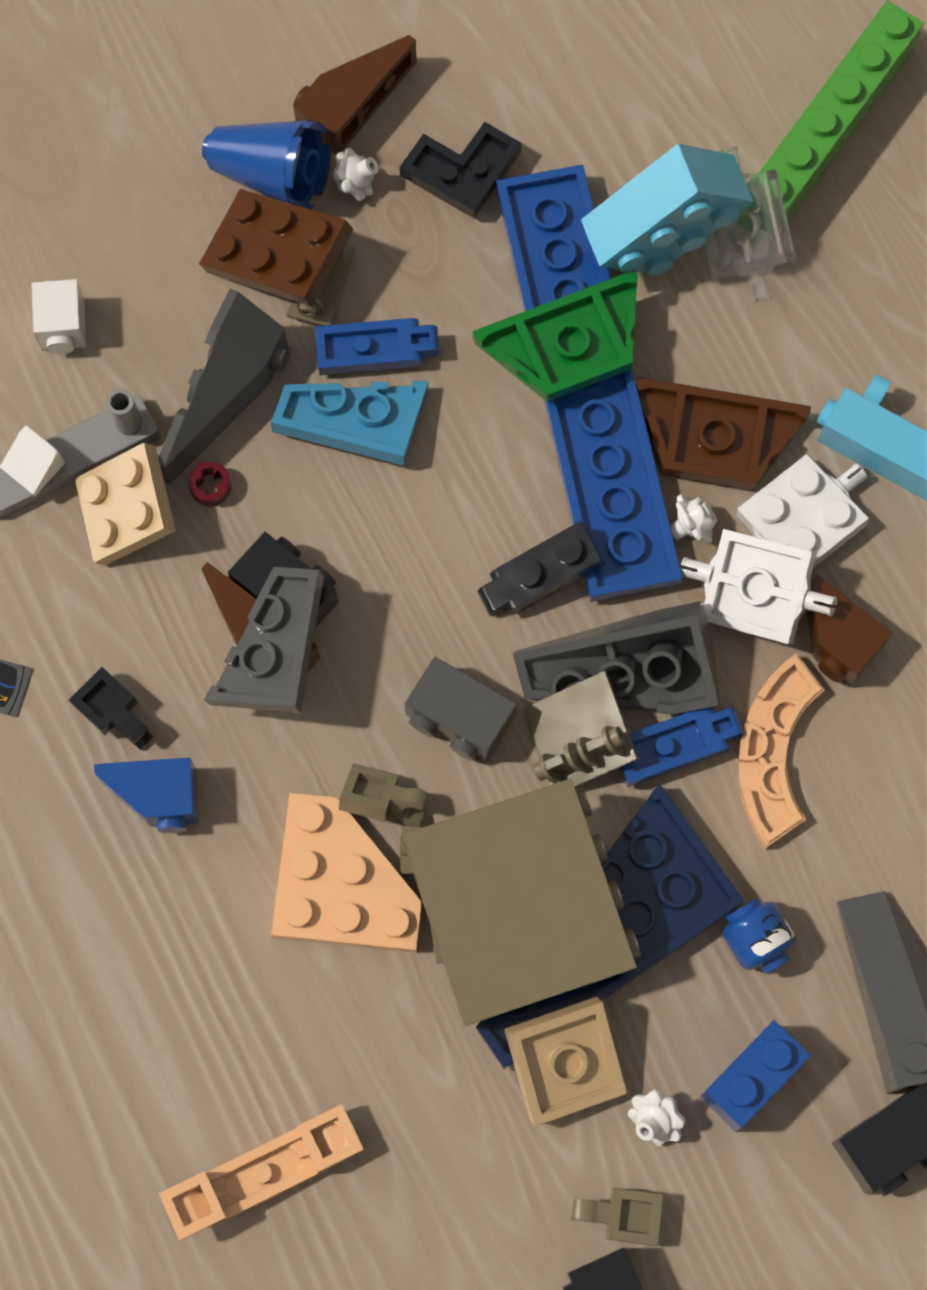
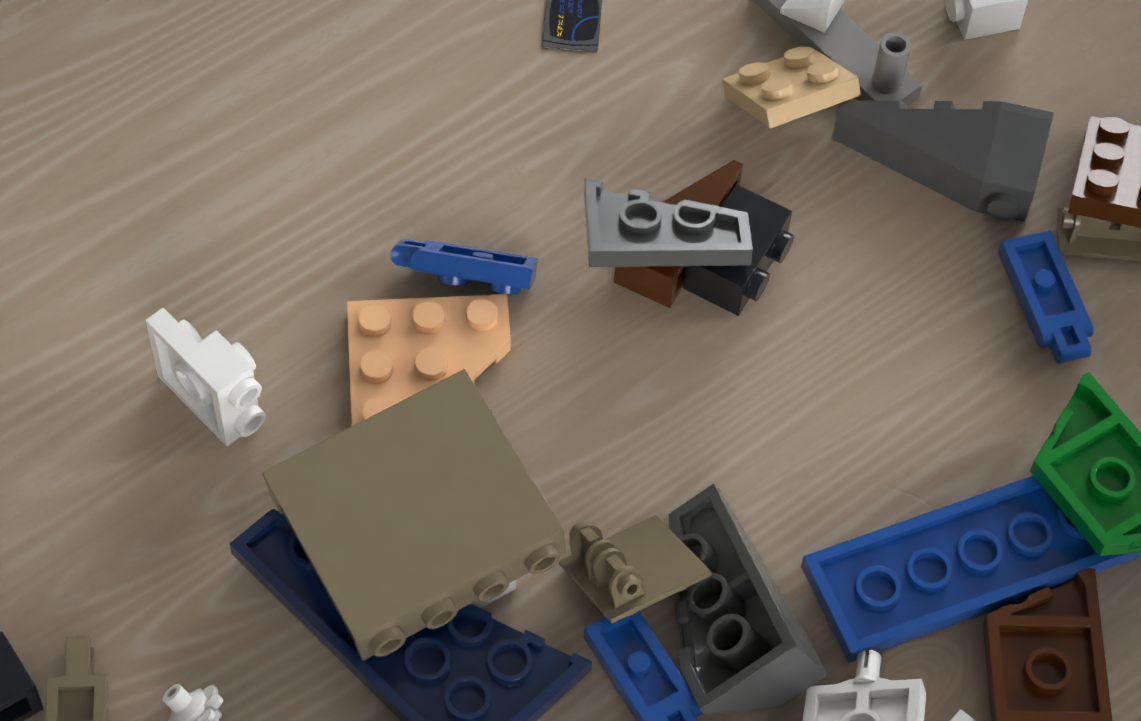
camera: 75 degrees right, 15 degrees down
(108, 705) = (566, 113): black plate -> none
(155, 790) = (483, 171): blue slope -> none
(196, 480) = (843, 157): dark red bush -> none
(253, 822) = (459, 264): none -> blue hinge
(261, 1173) = (85, 328): light nougat slope -> none
(357, 1055) = (207, 376): none -> white plate
(359, 420) = (954, 293): dark azure wing -> none
(376, 793) = (523, 372): dark tan plate -> none
(459, 710) = (634, 442): dark grey brick -> none
(541, 571) = (823, 502): black hinge -> none
(565, 1061) = (244, 602): tan plate -> none
(694, 519) = (932, 658): white plant -> none

